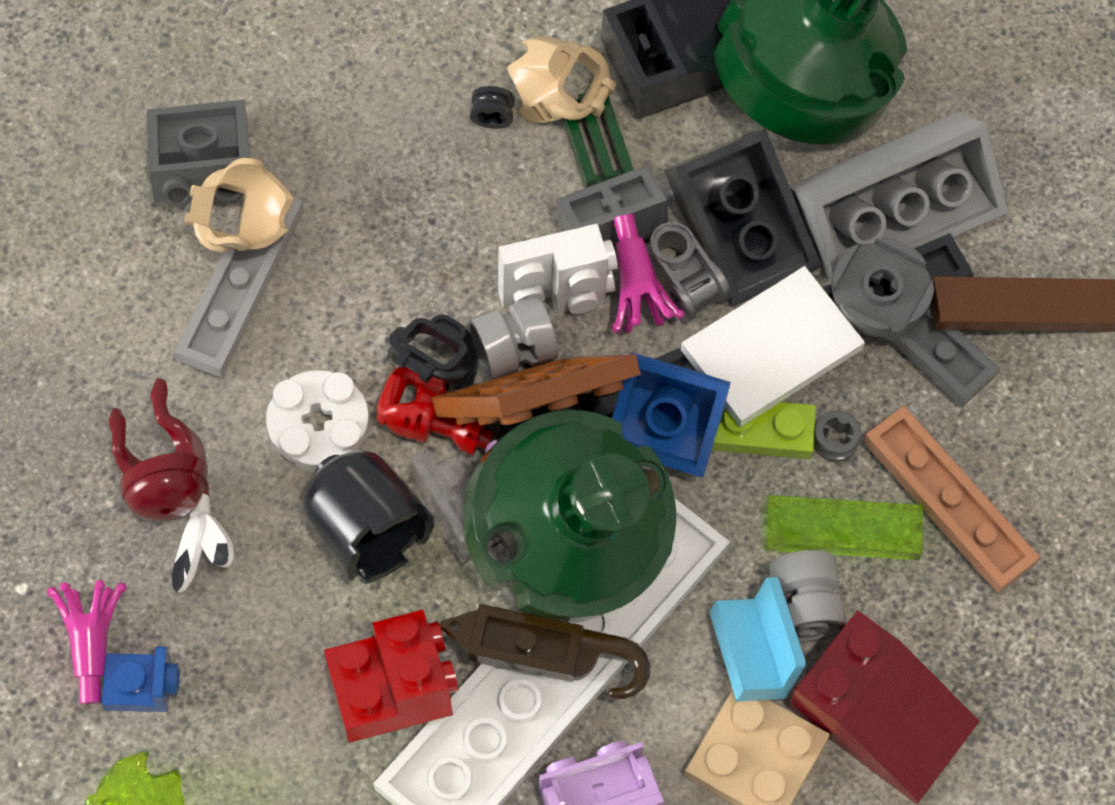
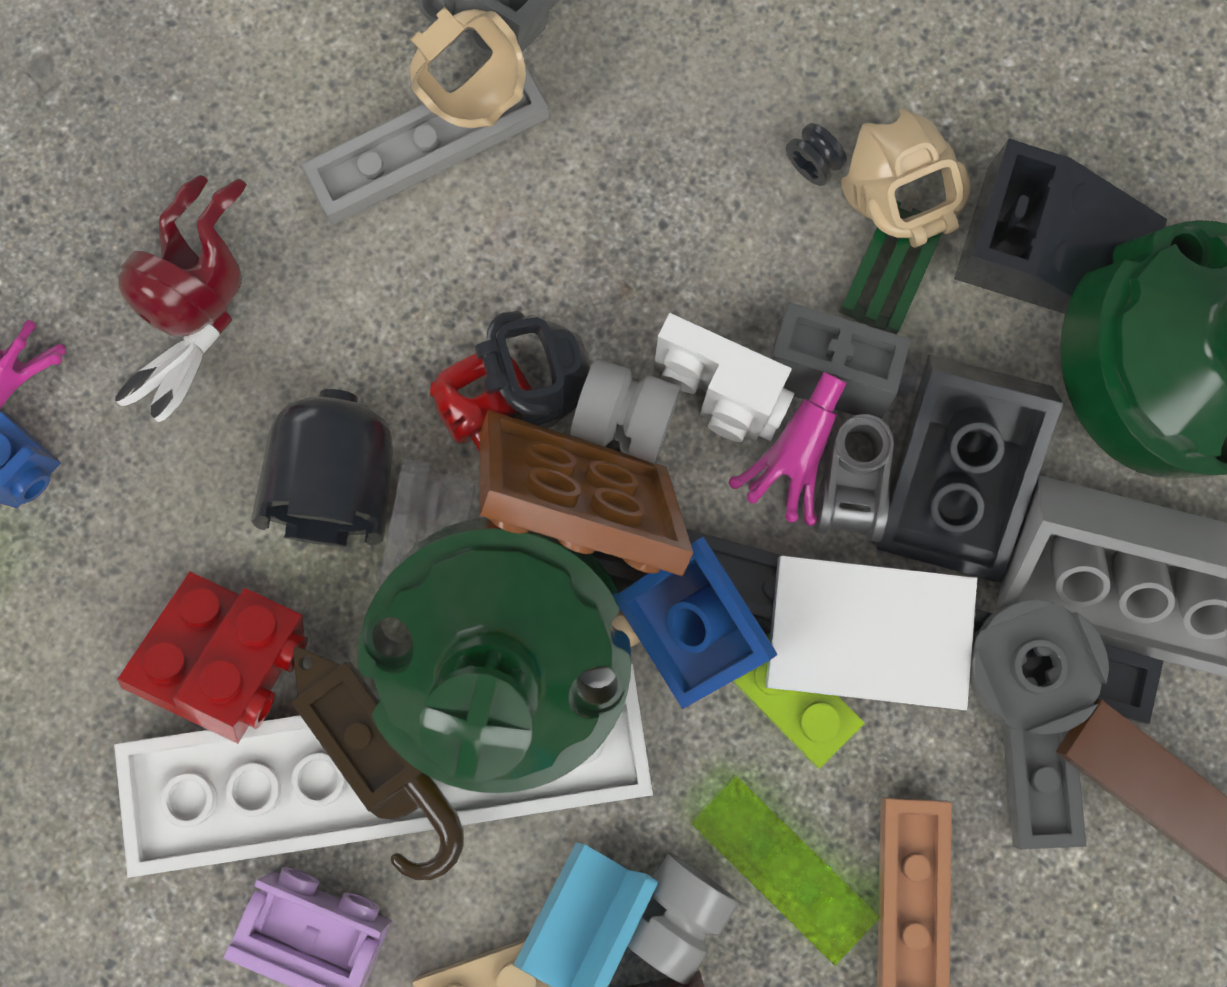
camera: 45 degrees right, 15 degrees up
(312, 392) = (372, 304): white plate -> none
(842, 423) = (875, 759): dark grey bush -> none

